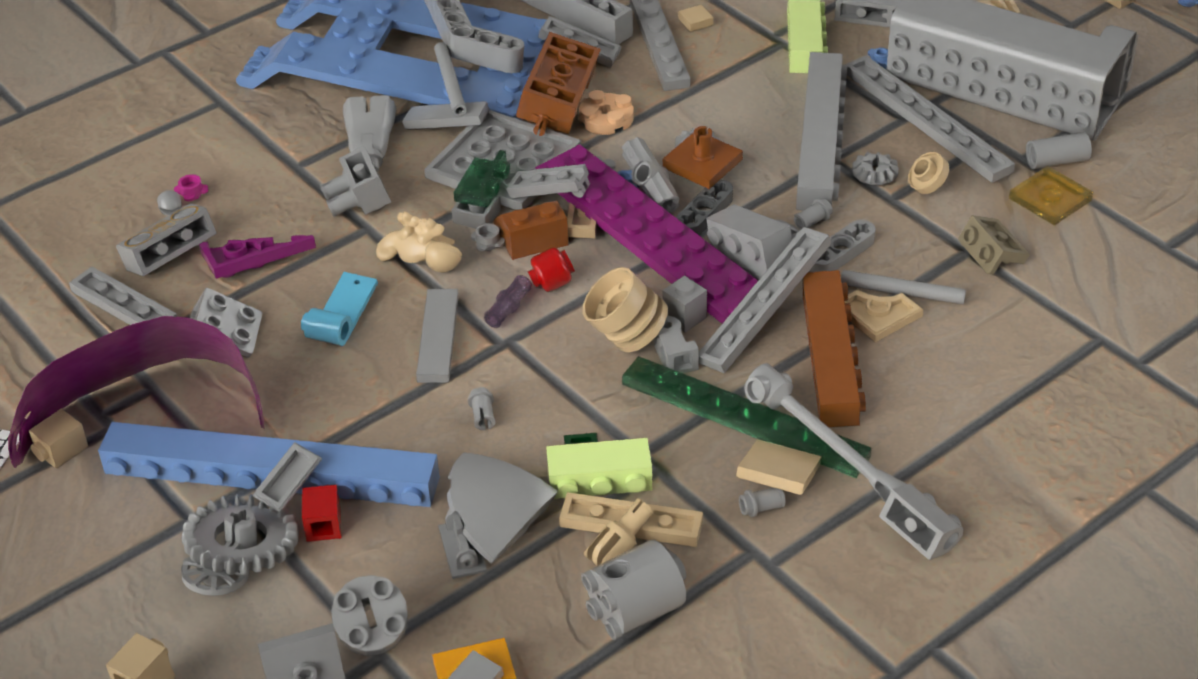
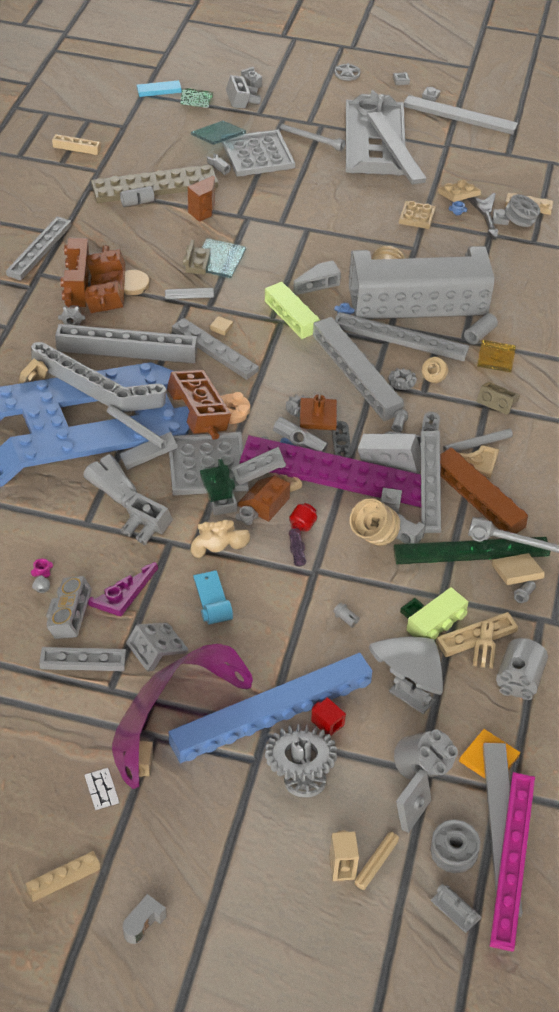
camera: 40 degrees left, 5 degrees up
(287, 477) = (301, 707): light grey tile -> none
(437, 336) = (278, 586): light grey tile -> none
(608, 52) = (164, 368): light grey tile -> none

